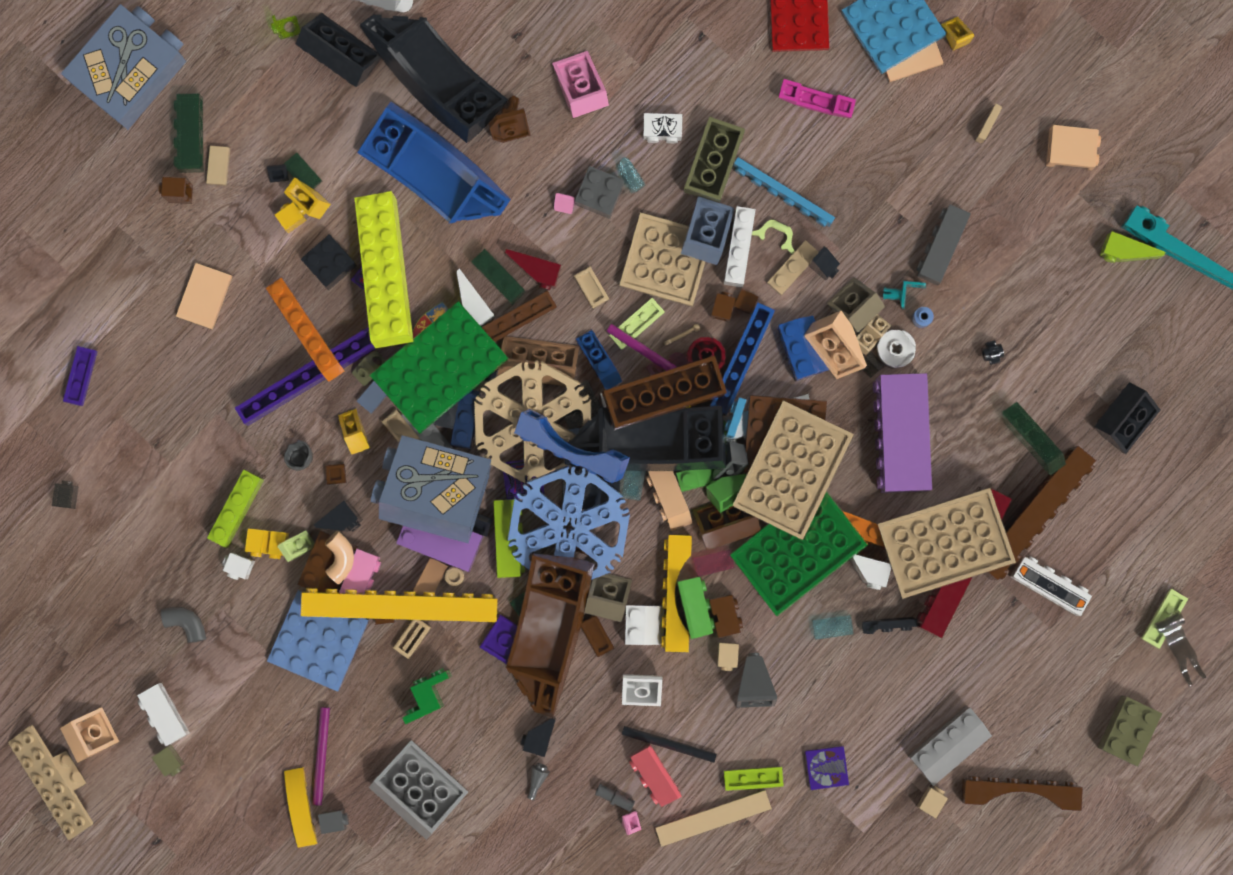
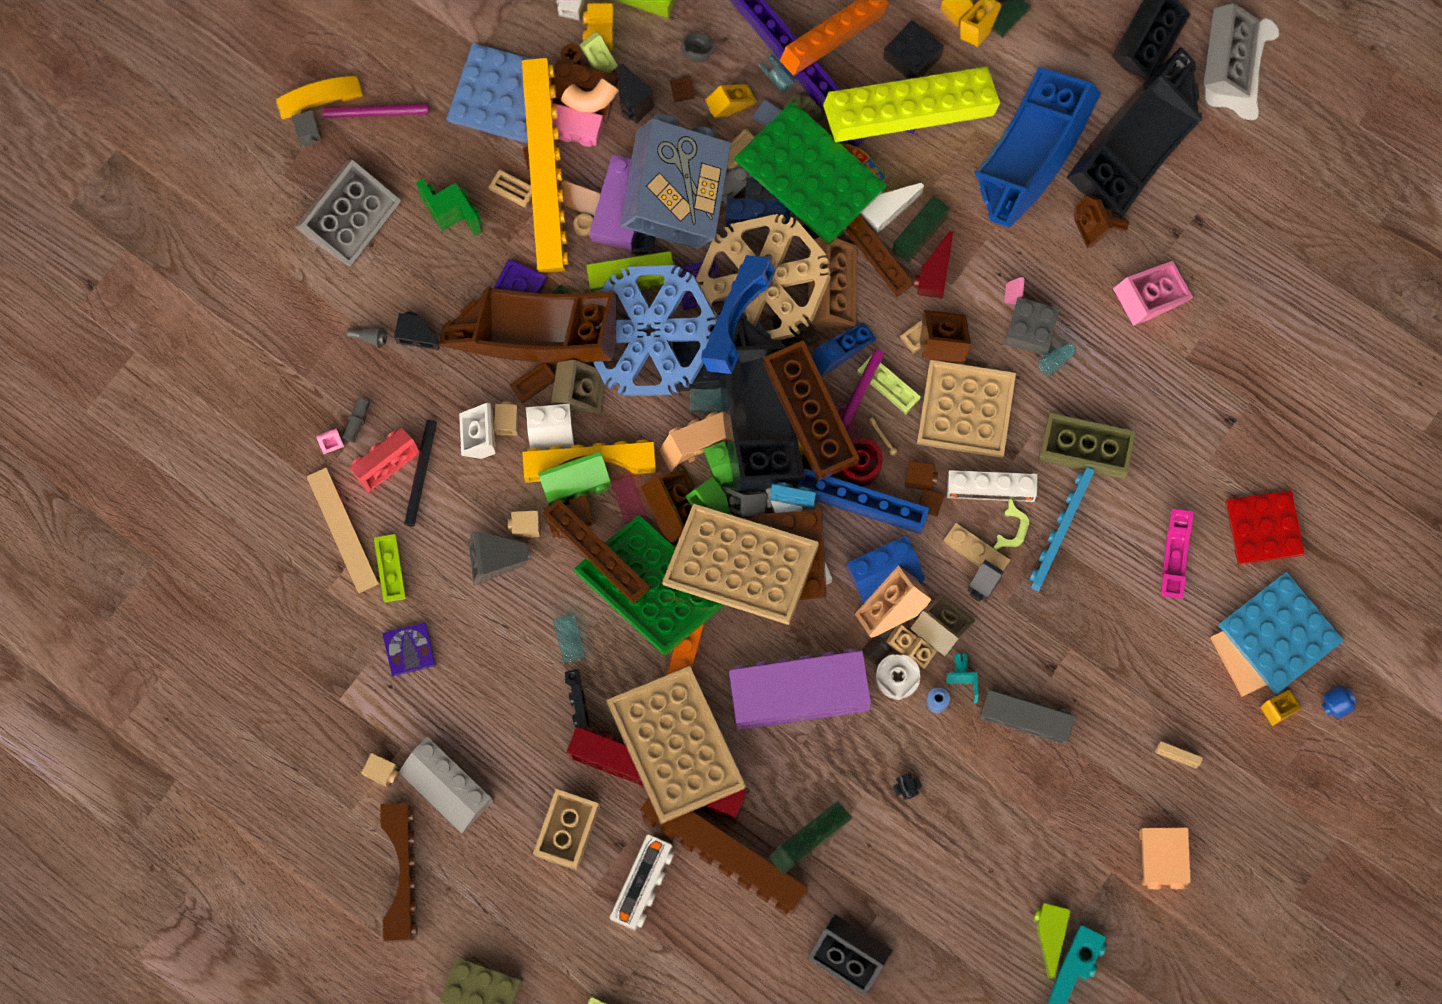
camera: 85 degrees right, 10 degrees down
(289, 566) = (575, 52): none -> reddish brown bush
(336, 386) = (779, 75): none -> clear light blue hinge
(600, 269) = (944, 336): none -> reddish brown slope
(629, 663) = (506, 419): none -> tan brick
(662, 127) = (1117, 387): white brick -> none
(707, 230) = (1004, 445): sand blue slope -> none
(766, 595) = (596, 551): none -> reddish brown plate
(872, 571) = (635, 668): white slope -> none
(1001, 645) = (566, 829): none -> tan brick

